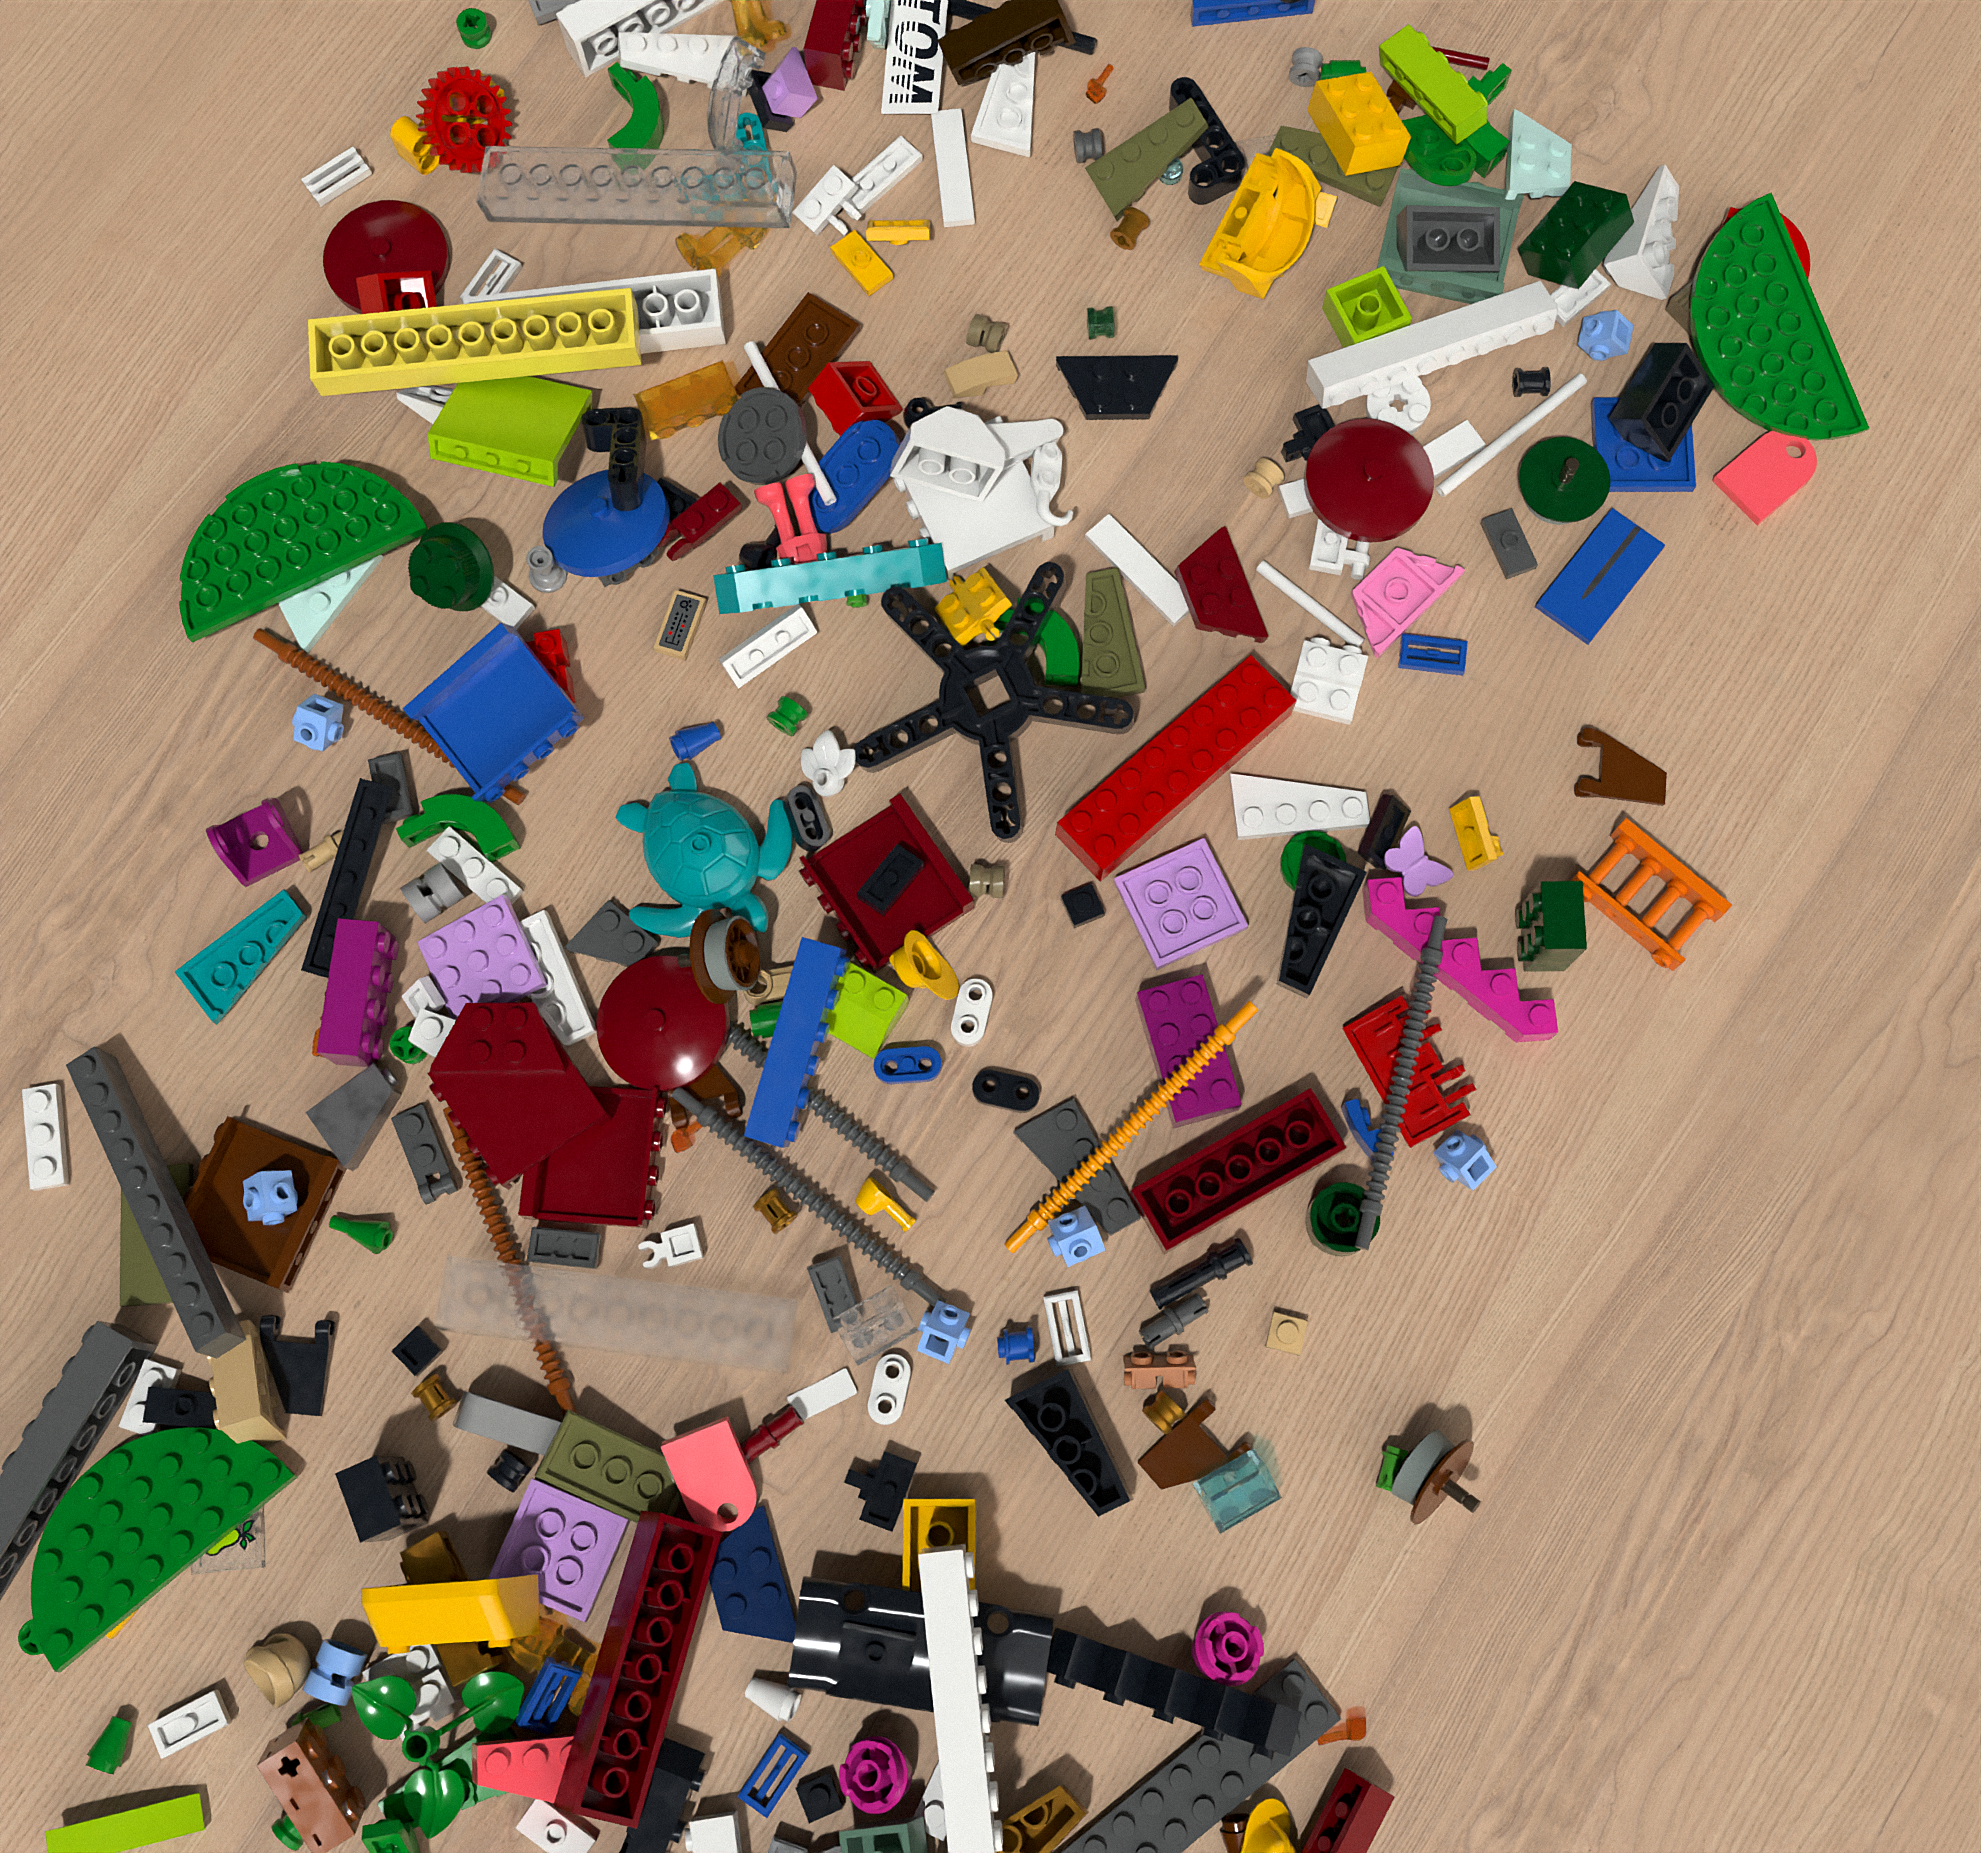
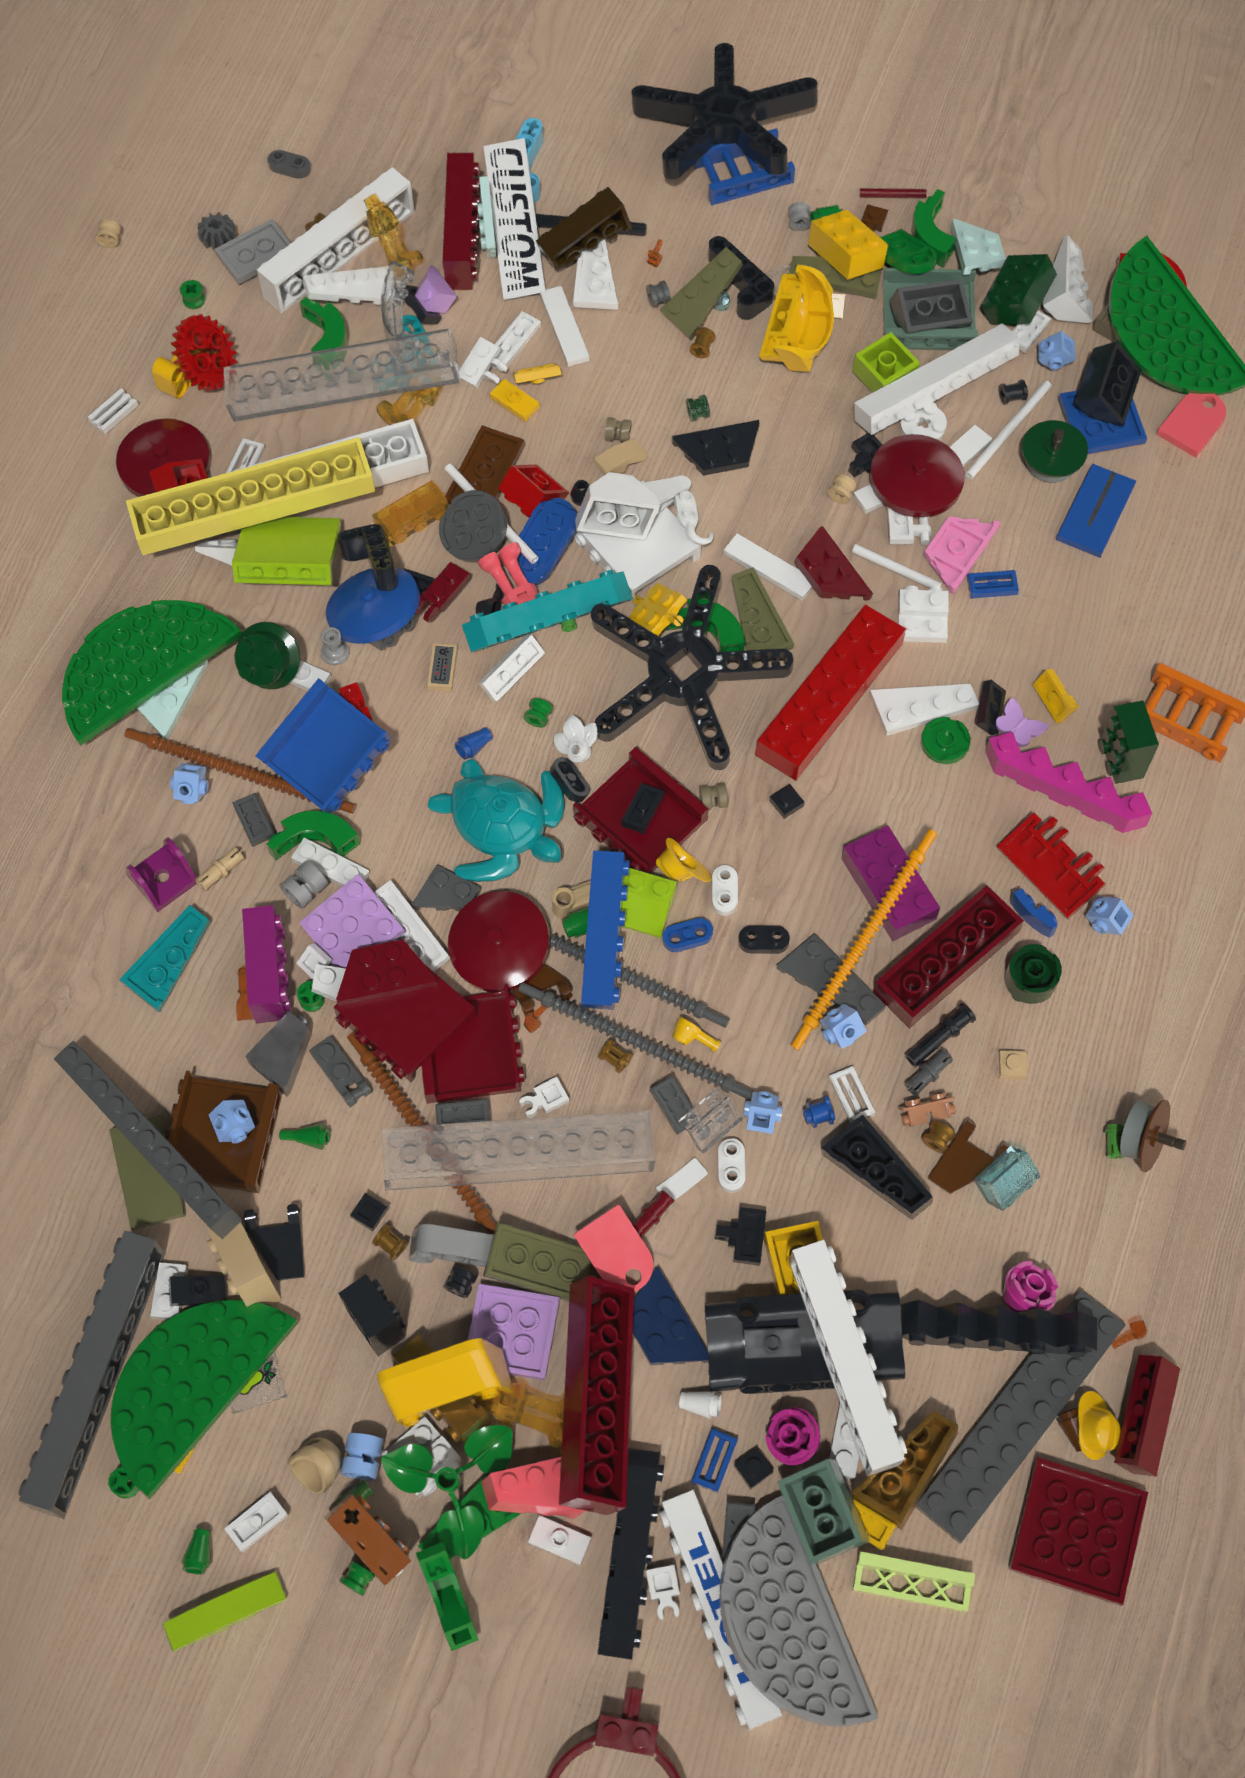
camera: 15 degrees left, 10 degrees down
(45, 1137) = (44, 1120): white plate -> none
(348, 871) = (237, 886): black plate -> none
(549, 1667) = (527, 1433): blue tile -> none
(722, 955) = (536, 878): reddish brown piece -> none
(1180, 903) = (857, 785): lavender plate -> none
(1318, 909) = (959, 765): black wedge -> none
(1371, 1205) = (1052, 955): dark grey hose -> none
(1433, 83) = (893, 209): lime brick -> none
(1509, 543) = (1026, 501): dark grey plate -> none
(1622, 773) = (1147, 637): reddish brown flag -> none

